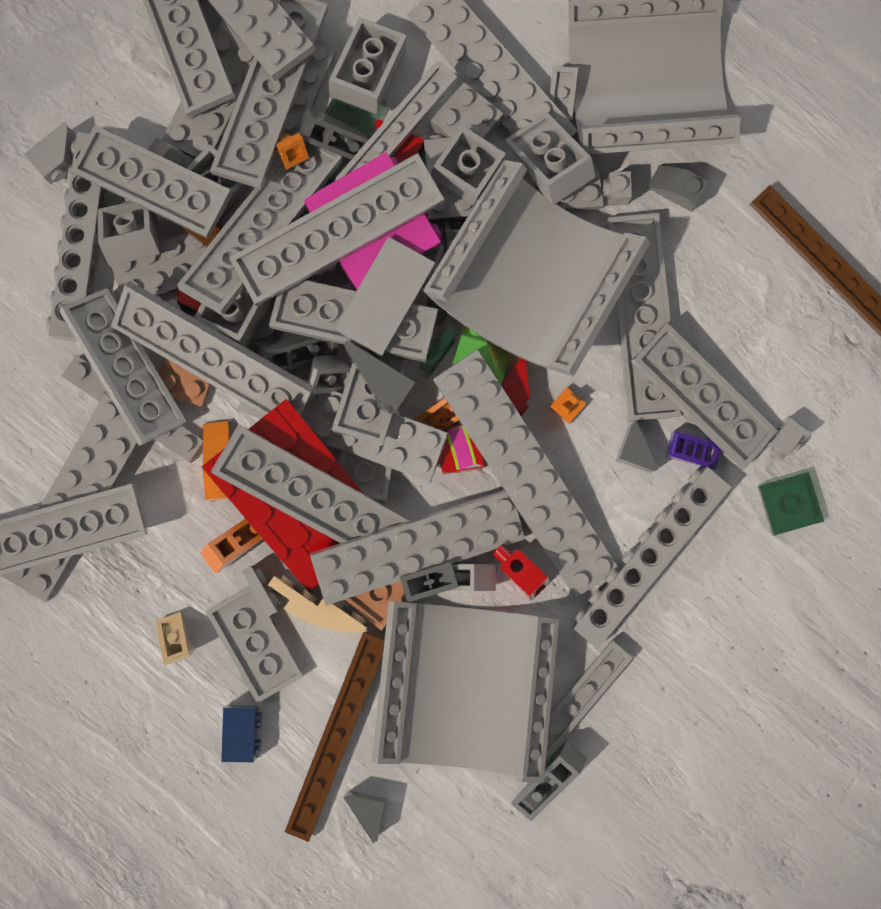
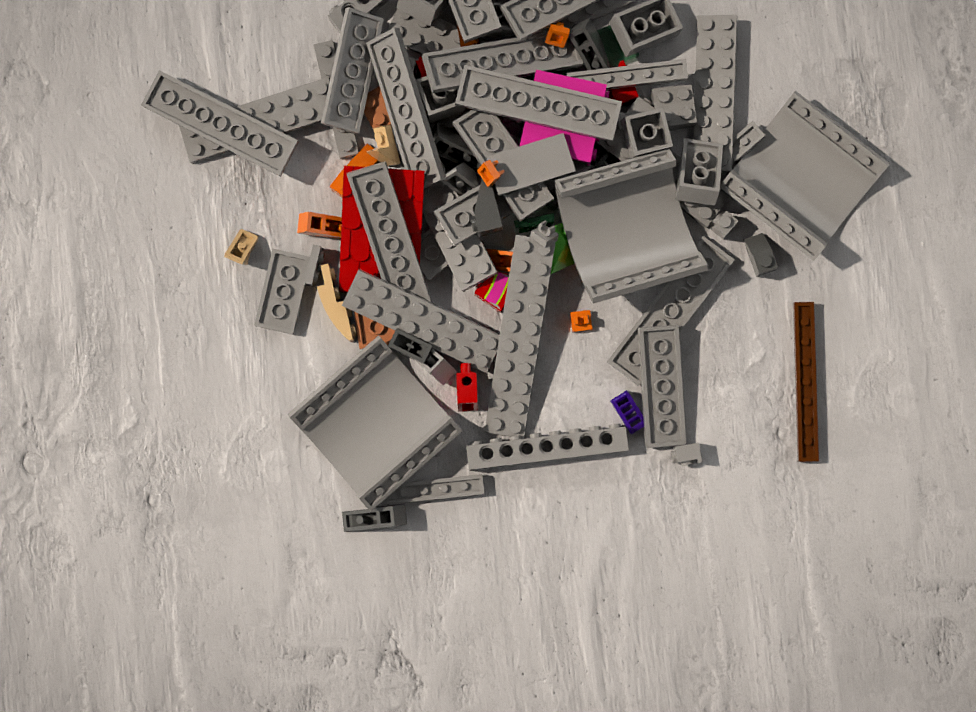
camera: 50 degrees right, 0 degrees up
(227, 411) = (386, 146): none -> tan slope
(241, 733) = (230, 334): dark blue brick -> none
(335, 737) = (280, 384): reddish brown plate -> none
(353, 341) = (489, 172): none -> orange tile
(367, 810) = (259, 442): dark grey slope -> none
(461, 353) = (544, 234): none -> light grey tile
(517, 387) = (559, 284): red slope -> none
(635, 450) = (594, 381): dark grey slope -> none
(790, 503) = (655, 492): clear green tile -> none

